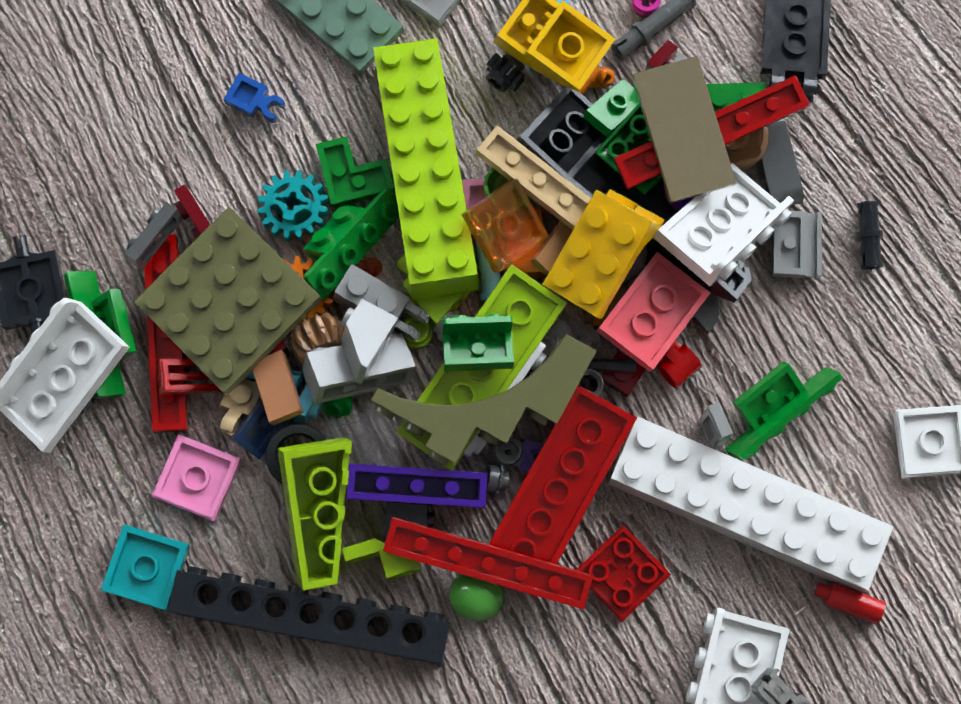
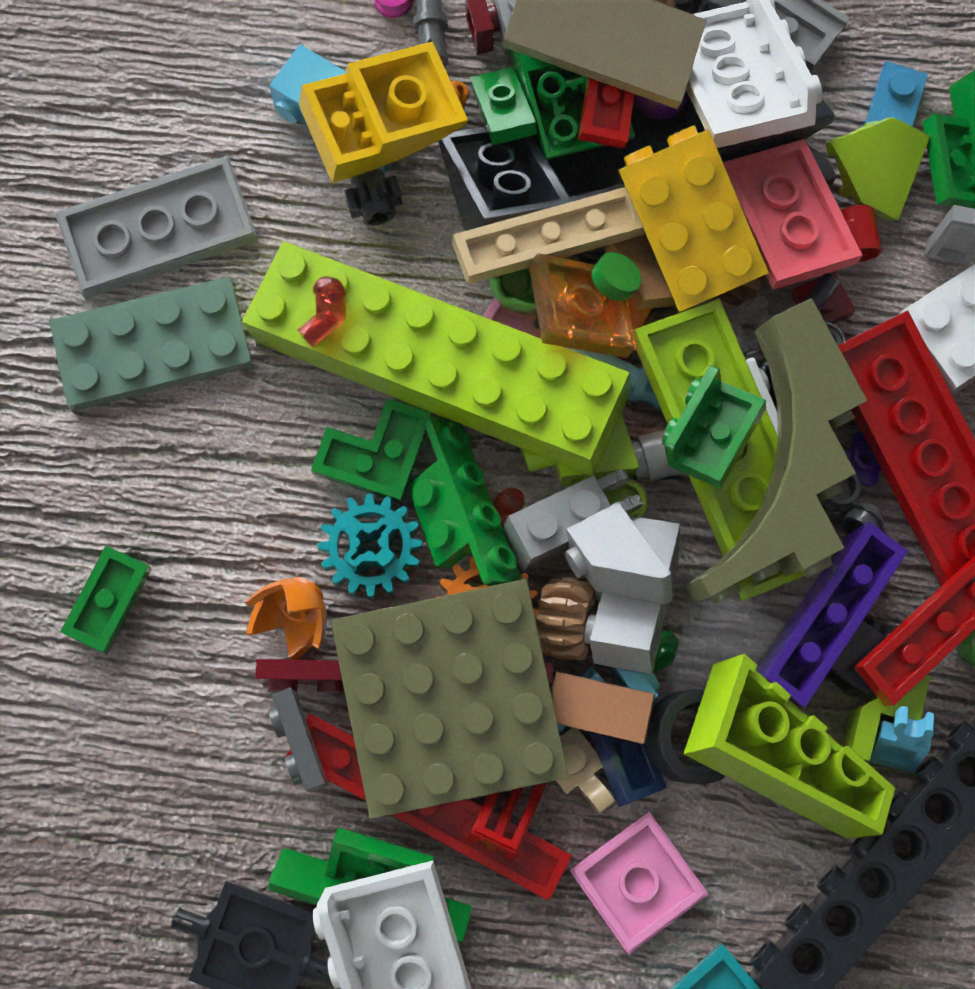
camera: 60 degrees left, 0 degrees up
(170, 85) = (106, 600): none -> green plate
(231, 186) = (296, 608): none -> orange piece
(250, 96) = (190, 512): blue plate -> none
(371, 576) = (904, 742): none -> medium azure plate
(406, 87) = (330, 310): none -> clear red arm
(537, 234) = (616, 276): none -> green tile
(733, 351) = (879, 164): none -> lime slope
(782, 340) = (896, 94): none -> dark azure plate

